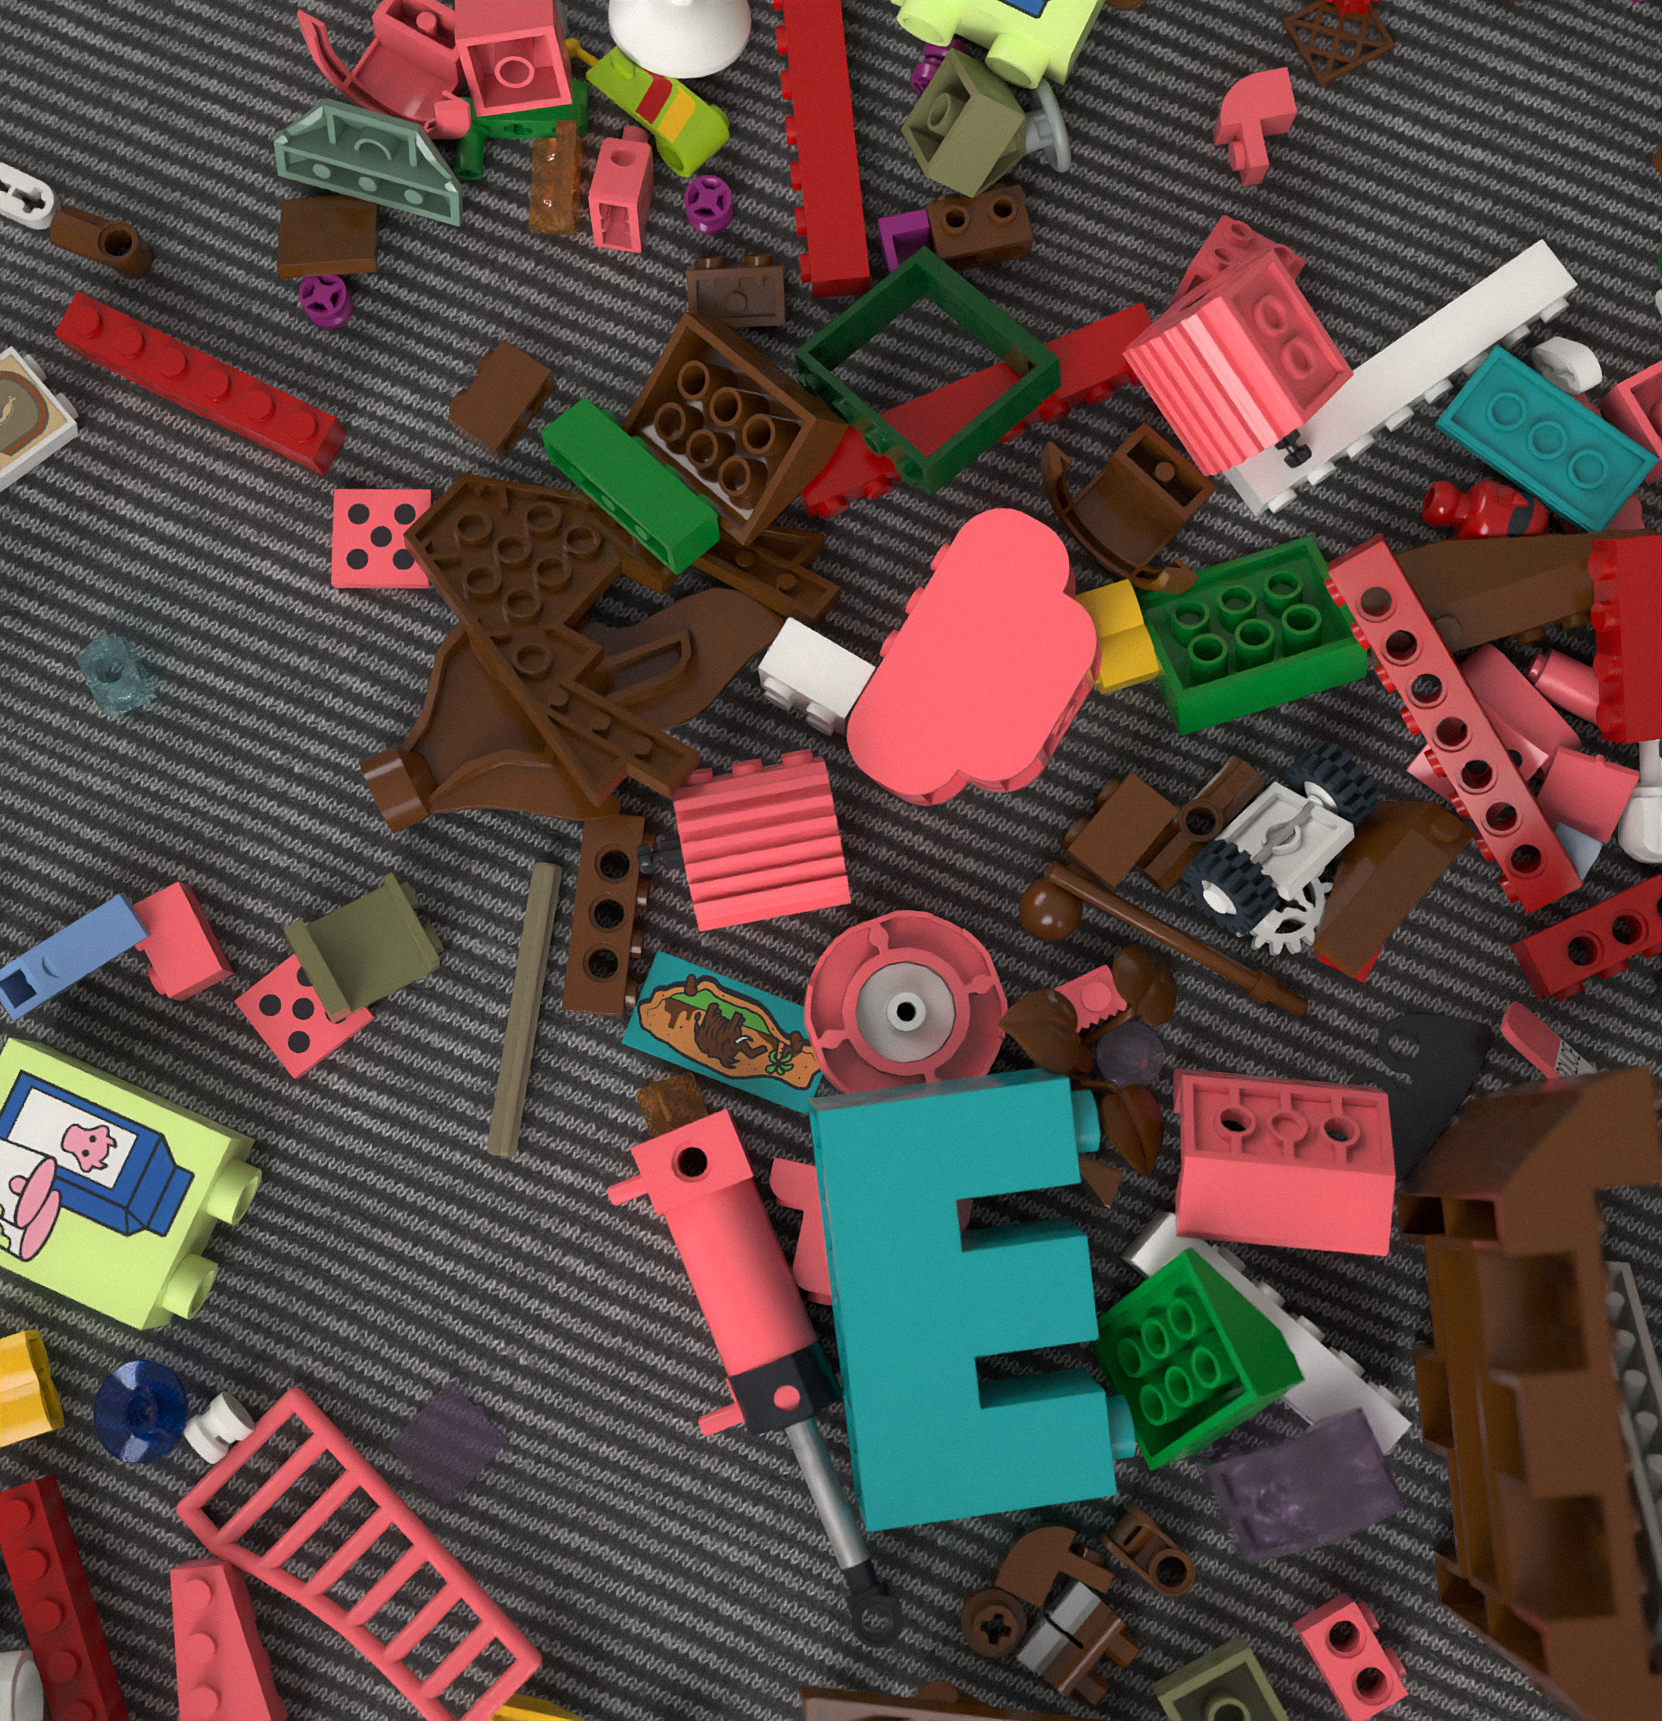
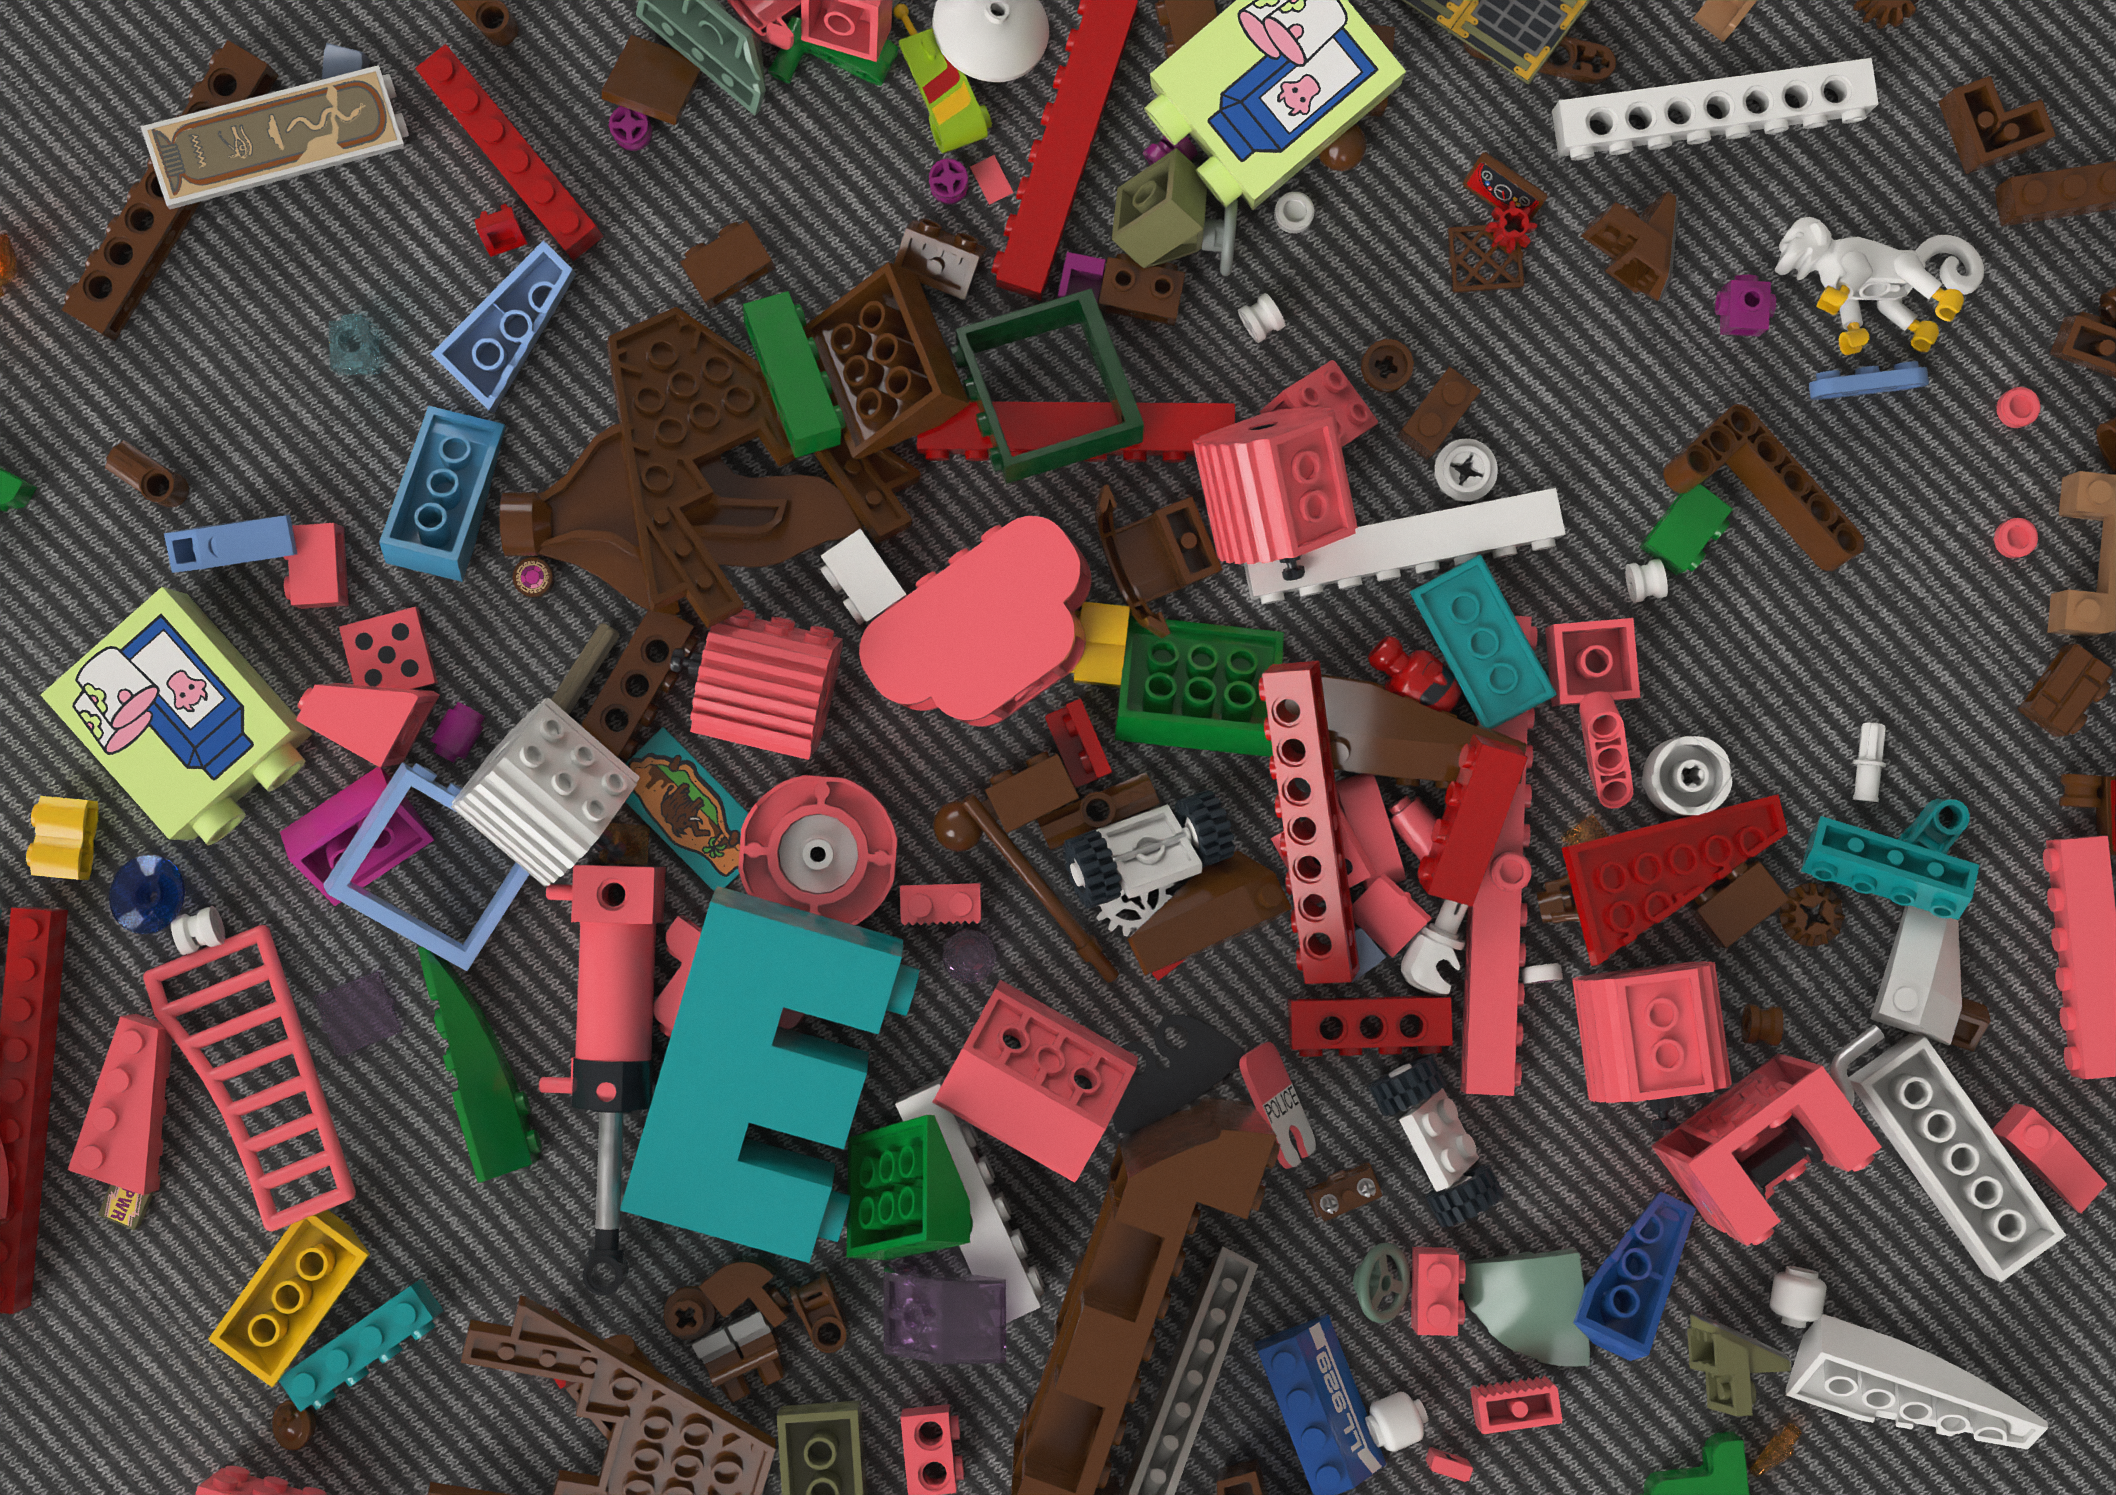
camera: 15 degrees right, 5 degrees up
(228, 475) = (500, 231): none -> red tile
(279, 580) = (504, 328): none -> light blue wedge
(289, 798) = (442, 494): none -> dark azure slope
(314, 1088) = (368, 719): none -> coral slope
(357, 1234) = (324, 833): none -> dark pink slope
(363, 1288) = (341, 888): none -> light blue window
(365, 949) = (449, 631): olive panel -> none
(370, 538) = (586, 322): coral tile -> none
(424, 1061) = (457, 732): none -> magenta brick
(434, 847) = (533, 577): none -> tile
(556, 181) = (841, 113): clear orange bracket -> none
(564, 1078) = (548, 794): none -> white piece
(622, 191) = (887, 142): coral torso -> none
(644, 1467) = (487, 1094): none -> green wedge
(754, 185) = (991, 179): none -> coral sticker
(1046, 1031) = (905, 919): reddish brown plant -> none
(1098, 1181) = (901, 1033): reddish brown slope -> none
(1105, 76) = (1294, 212): none -> white tile
(1125, 201) = (1261, 318): none -> white wheel
(1135, 746) = (1078, 743): none -> red bracket
(1254, 109) = (1391, 289): coral brick -> none
(1301, 183) = (1400, 361): none -> reddish brown piece
(1370, 218) = (1438, 413): none -> reddish brown brick
(1442, 254) = (1482, 462): none -> white gear
(1567, 365) = (1528, 591): white beam -> none

